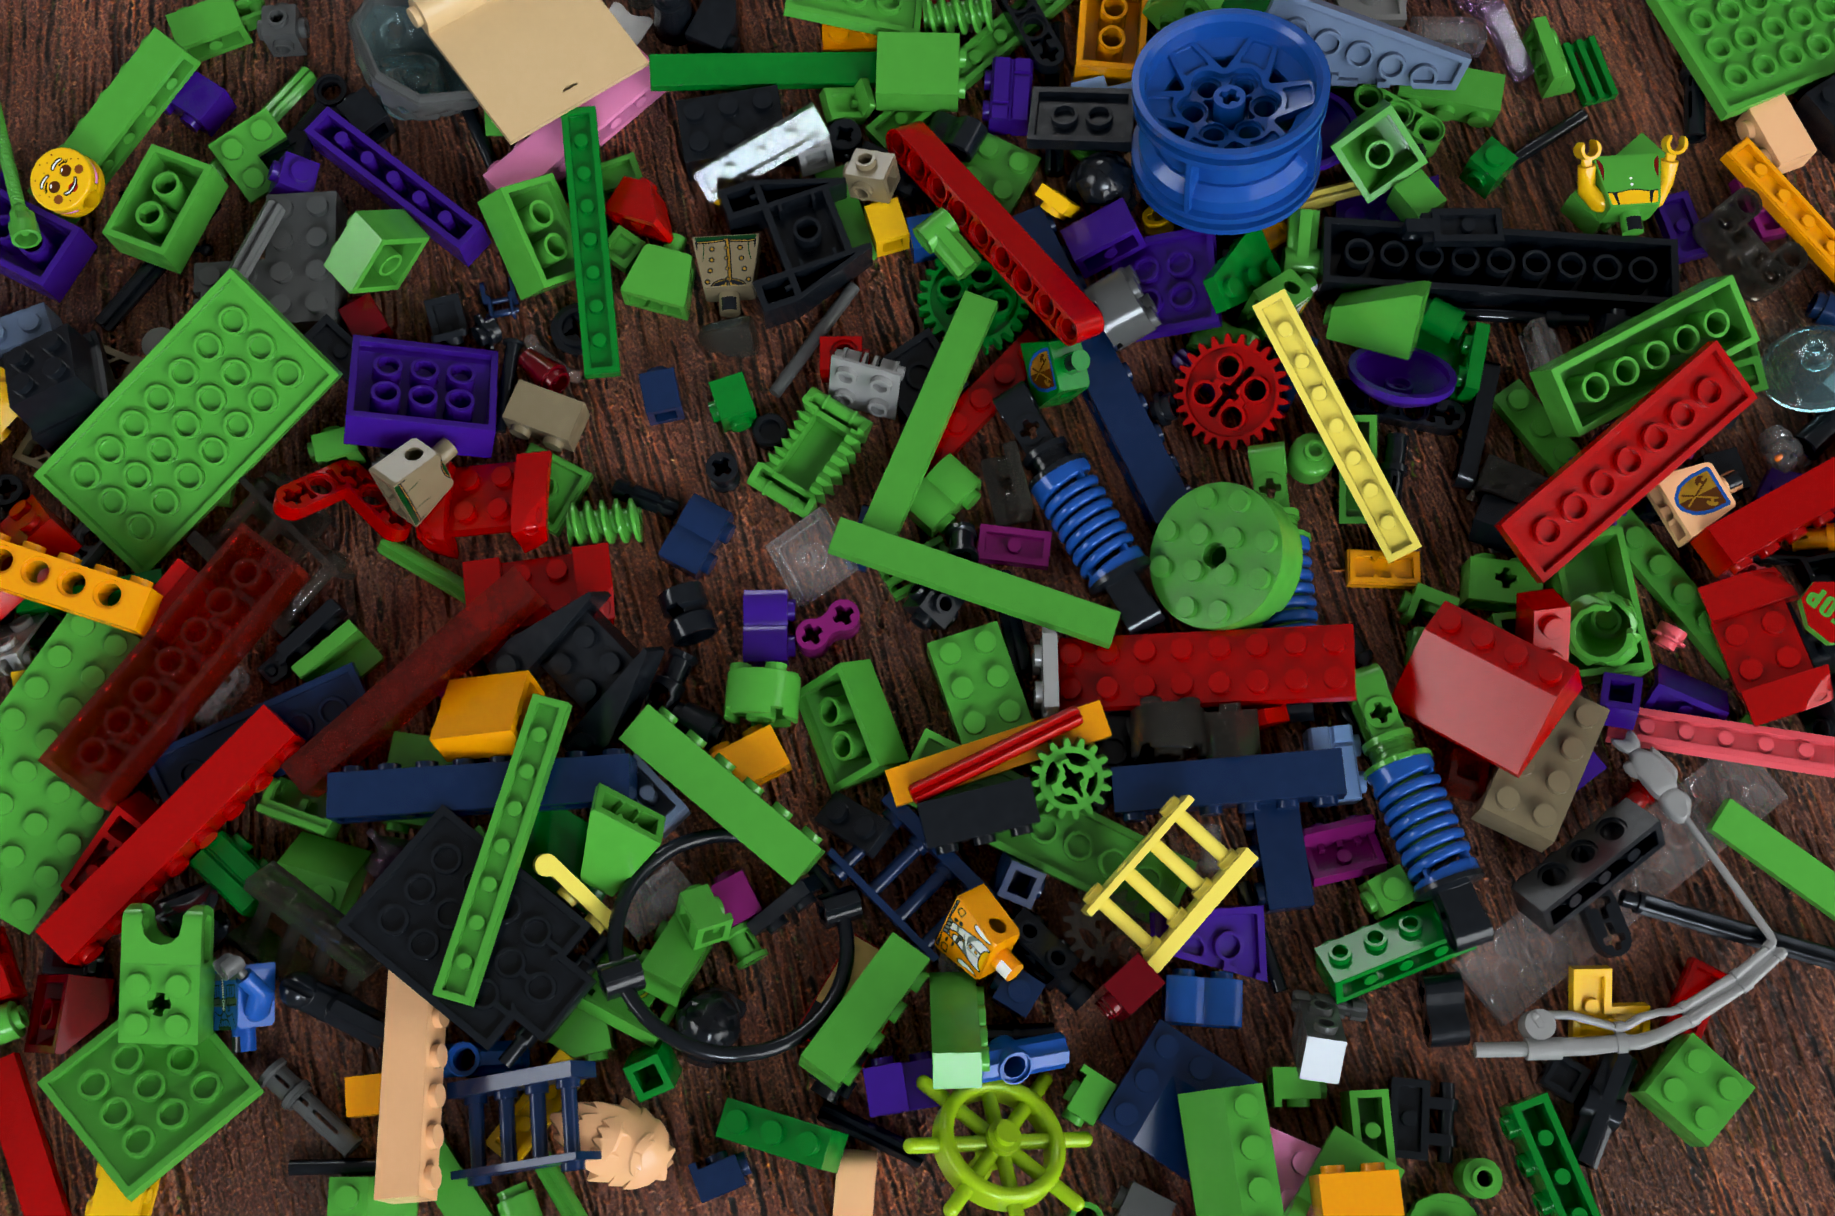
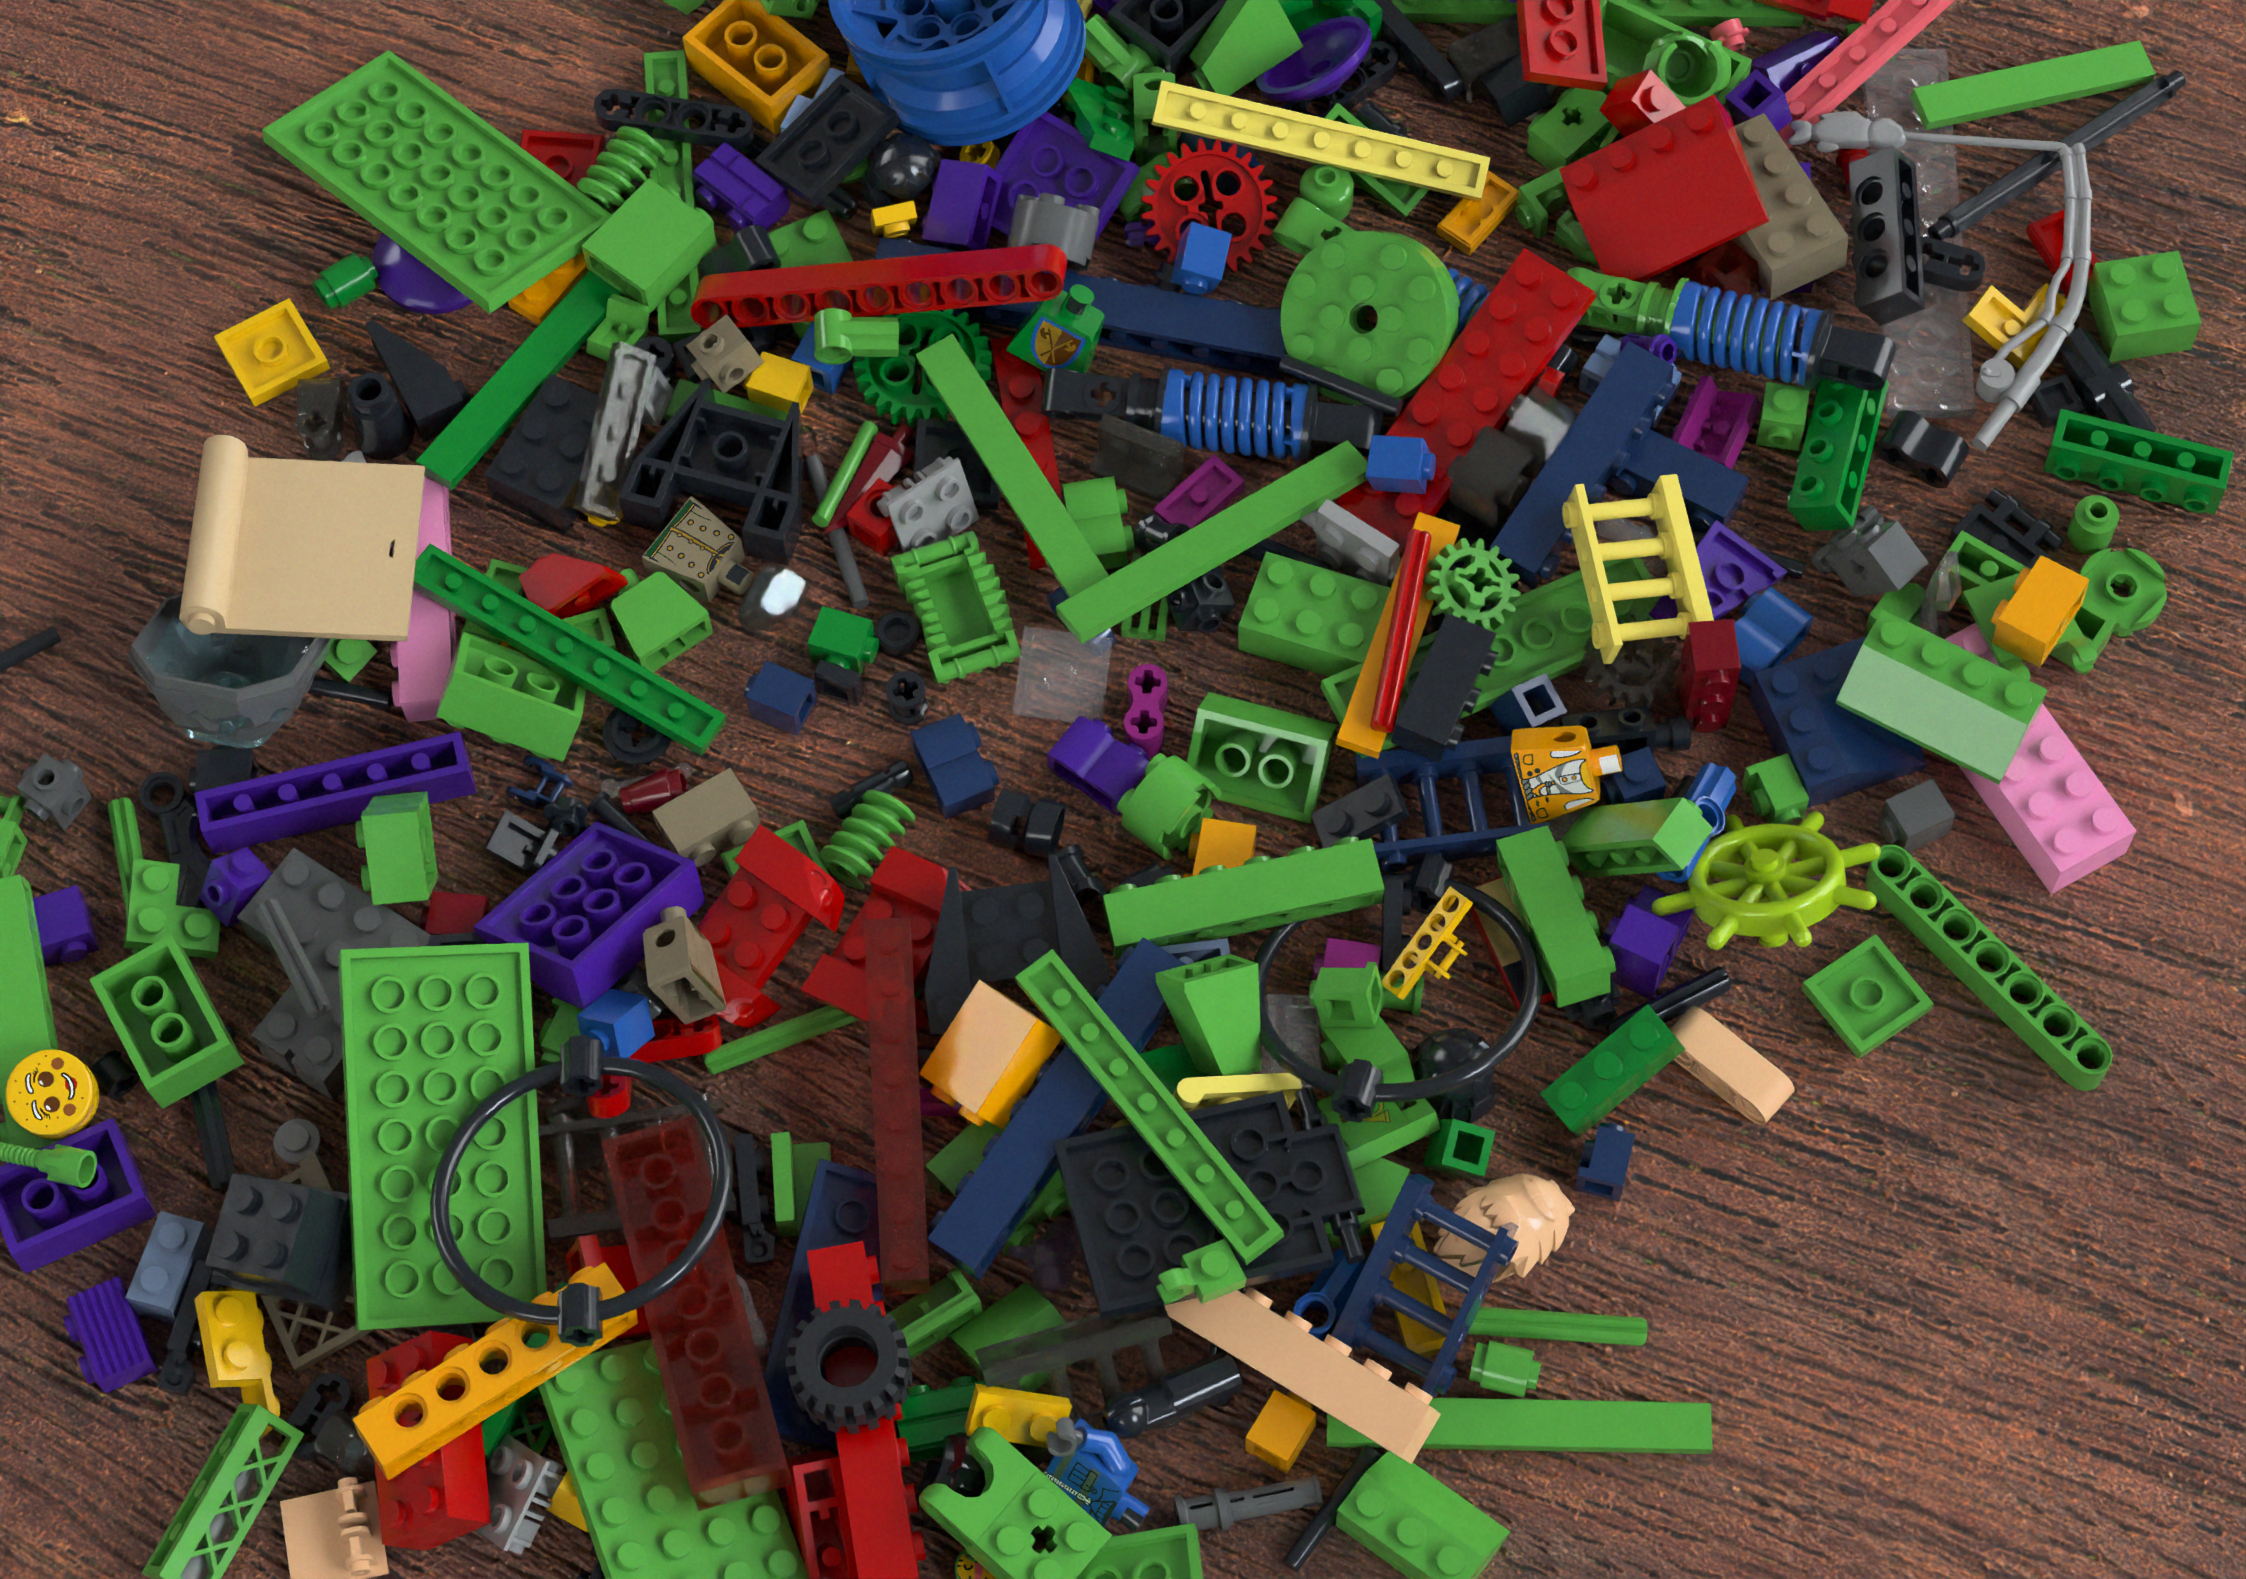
camera: 50 degrees left, 10 degrees down
(96, 601) = (579, 1305): none -> black piece
(159, 779) = (841, 1329): none -> black tyre
(251, 922) = (1016, 1414): none -> yellow plate
(347, 469) = (618, 1021): none -> blue brick
(410, 976) = (1206, 1271): none -> bright green plate
(701, 422) = (839, 683): none -> black tile
(791, 951) = (1442, 934): none -> yellow piece
(856, 313) = (845, 474): none -> bright green bar
(878, 331) = (884, 461): none -> dark red bar
(1124, 661) = (1400, 464): none -> blue brick
(1158, 577) = (1341, 385): none -> black bar
(1183, 415) = (1200, 258): none -> blue brick
(1319, 1112) = (1941, 596): none -> clear slope
(1355, 768) = (1659, 345): none -> dark purple pin

